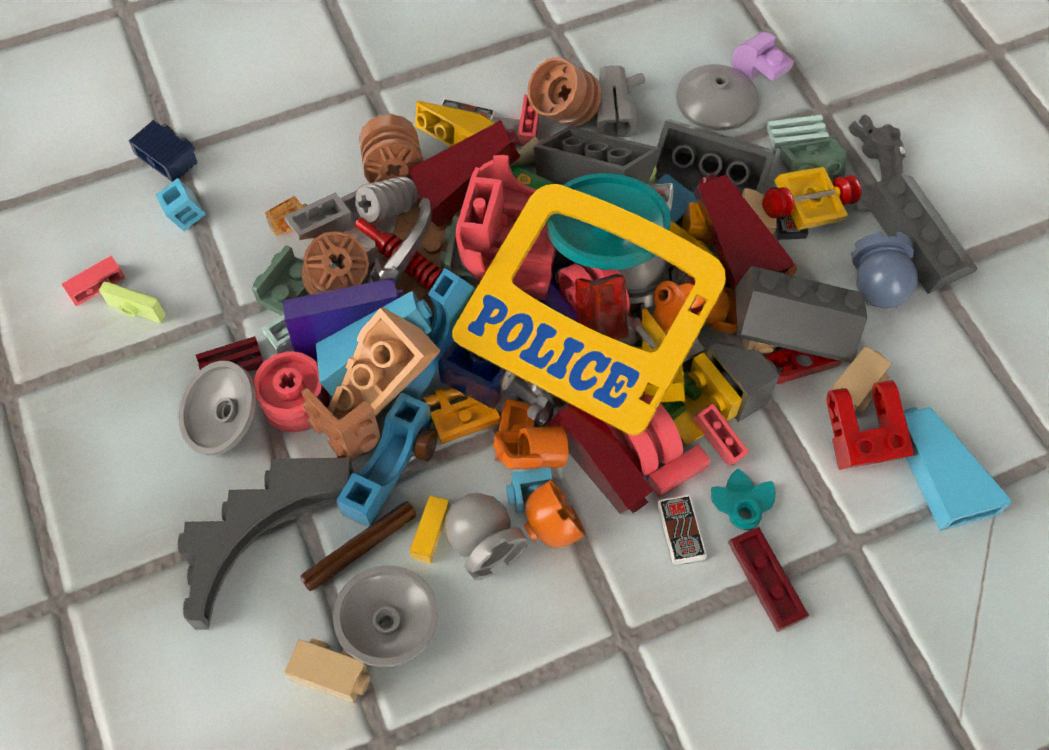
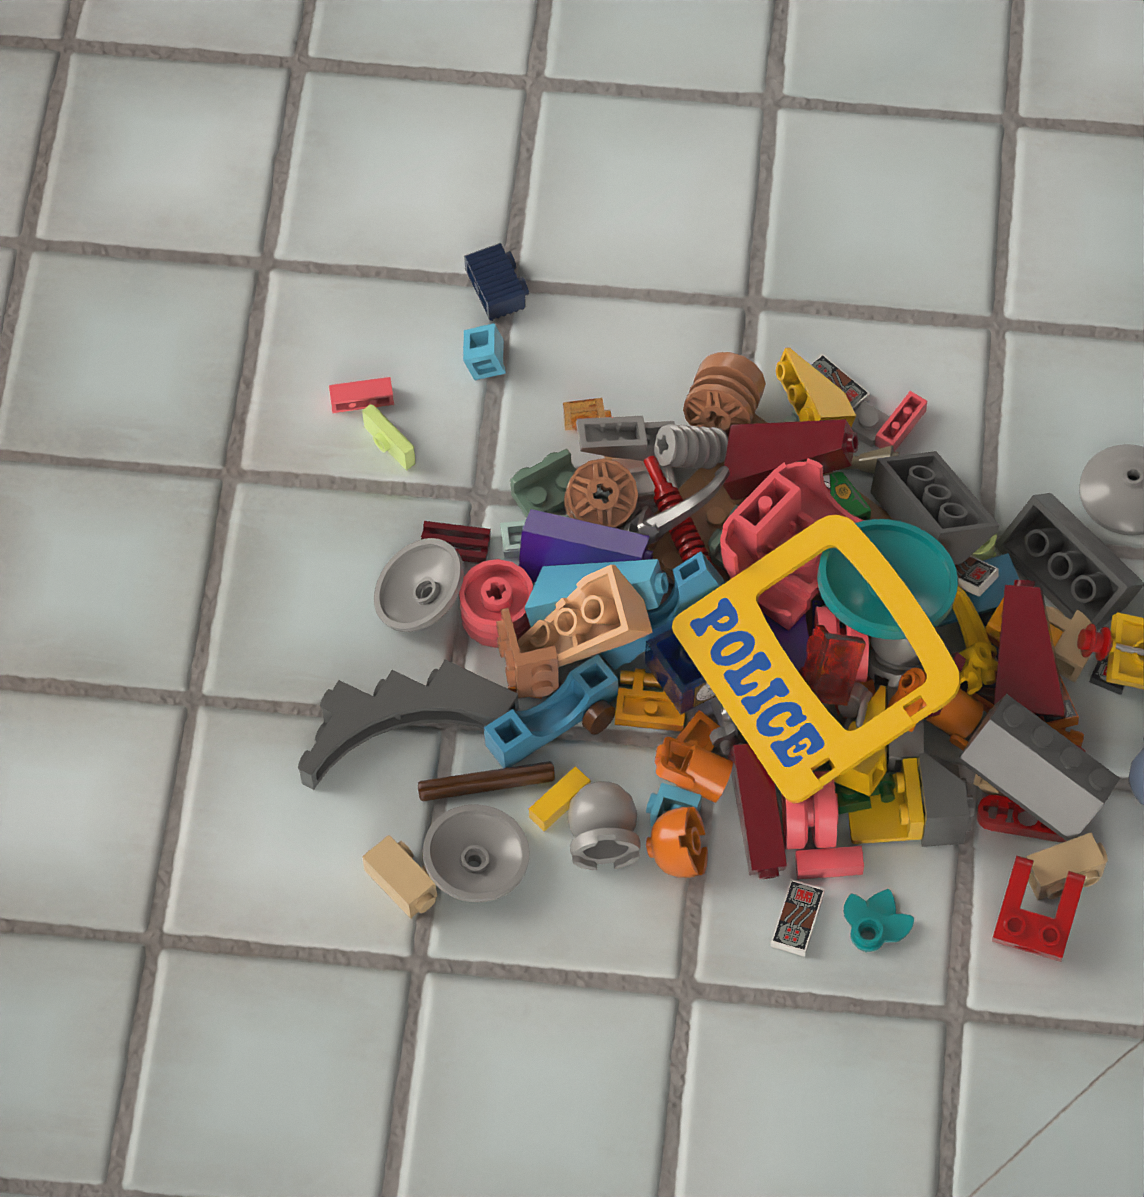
camera: 30 degrees right, 0 degrees up
(564, 92) = (947, 412): nougat wheel -> none
(615, 103) = (1002, 441): light grey piece -> none
(720, 434) = (889, 847): coral piece -> none
(768, 579) = (852, 1003): dark red tile -> none
(949, 475) = (1093, 996): medium azure slope -> none

